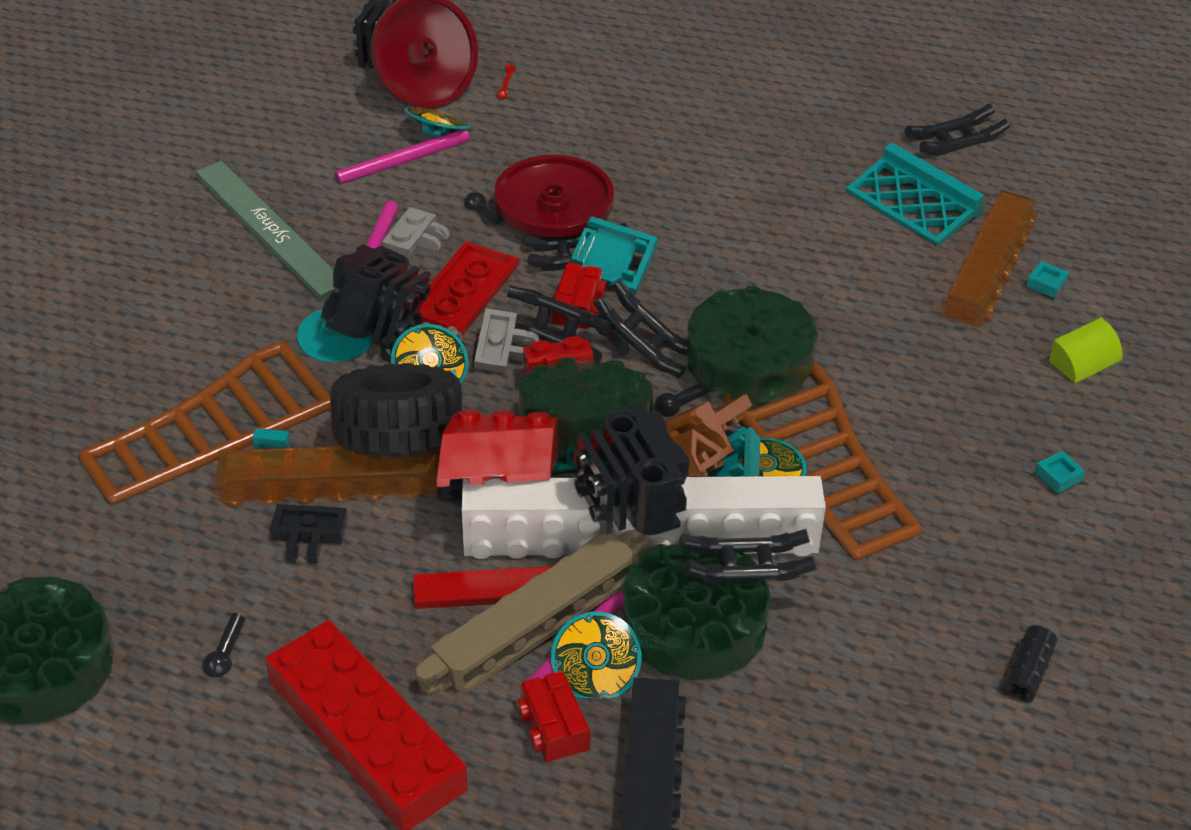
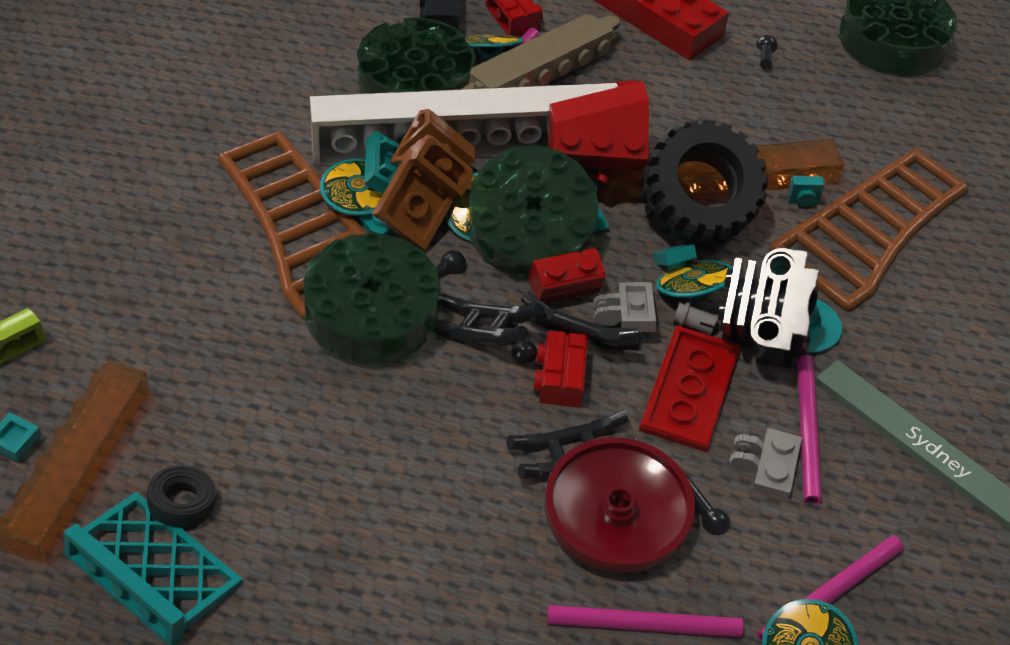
camera: 170 degrees right, 5 degrees up
(310, 525) = (758, 130): black hinge -> none
(549, 148) = (644, 621): none -> dark pink piece
(613, 251) = (535, 419): teal container -> none
(632, 473) = (479, 73): black piece -> none
(761, 545) = (361, 64): black piece -> none
(901, 217) = (181, 514): none -> black tyre
(1030, 663) = (151, 53): black axle -> none
(1060, 471) = (76, 207): teal plate -> none

